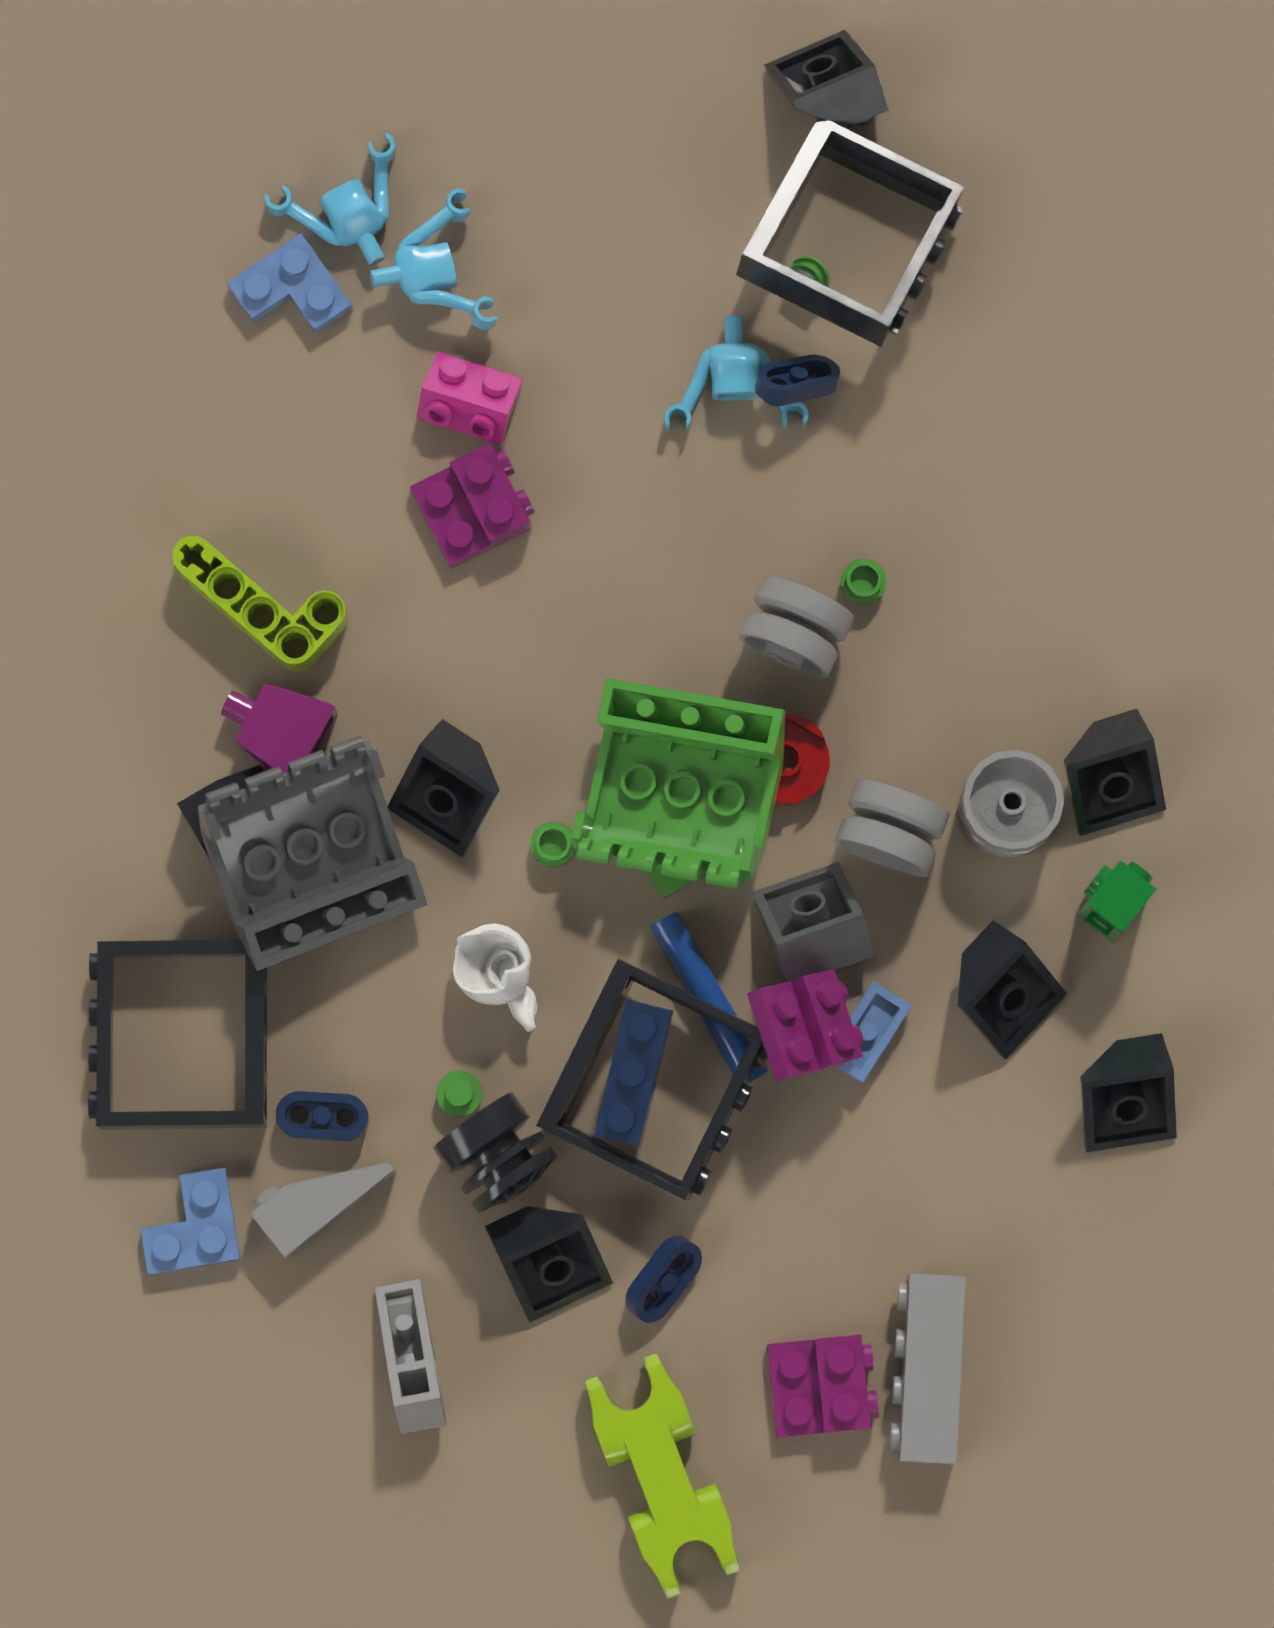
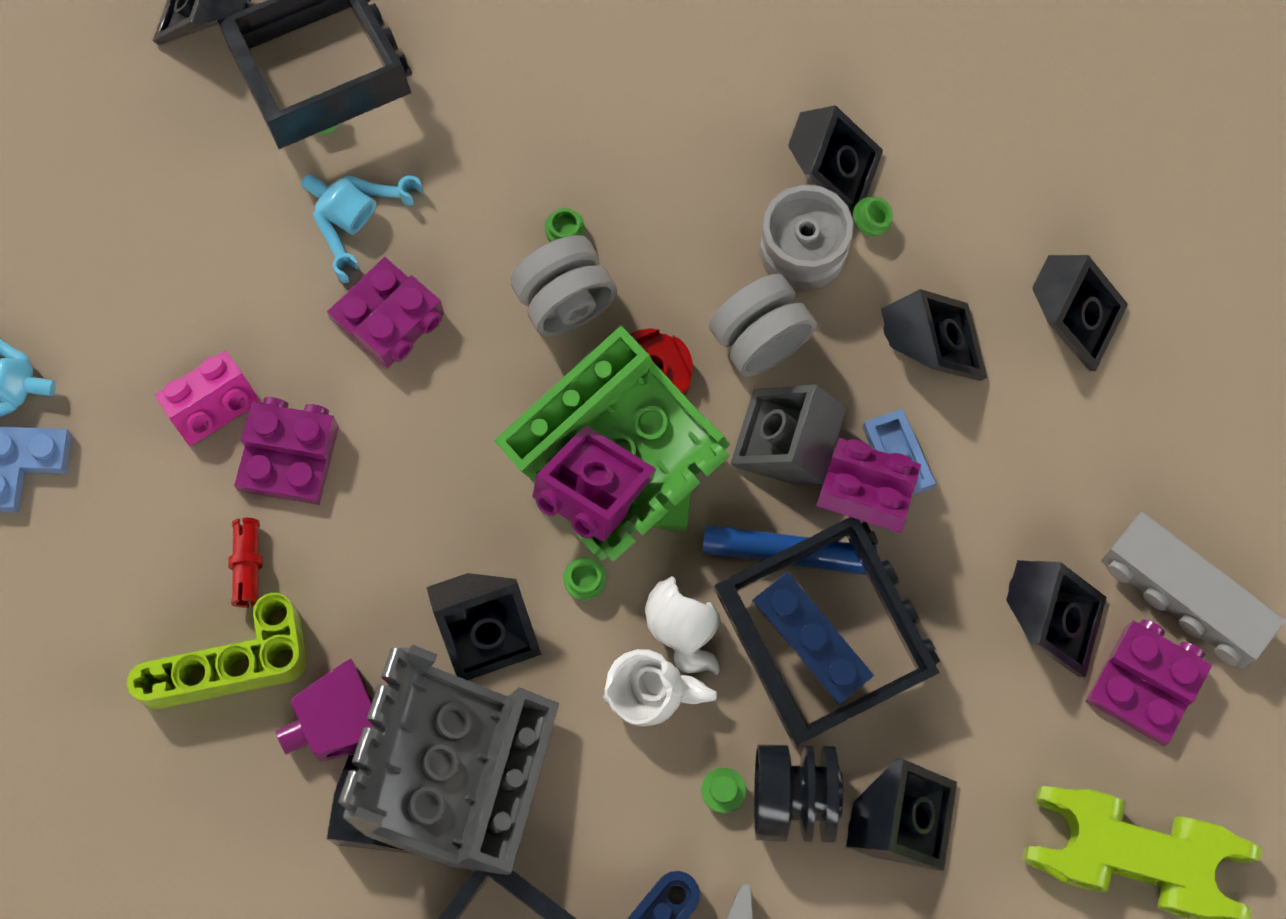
camera: 50 degrees left, 10 degrees down
(352, 550) = (245, 562): none -> red pin
(430, 268) = (92, 355): medium azure piece -> none
(569, 959) = (683, 626): none -> white hair
(630, 790) = (591, 484): none -> magenta plate
(663, 488) = (387, 312): none -> magenta plate
(663, 1279) = (983, 739): dark blue plate -> none
(797, 379) = (386, 167): dark blue plate -> none
(819, 1267) = (1057, 611): none -> black slope
(1084, 847) = (872, 216): none -> bright green plate
(1116, 898) = (931, 214): green brick -> none

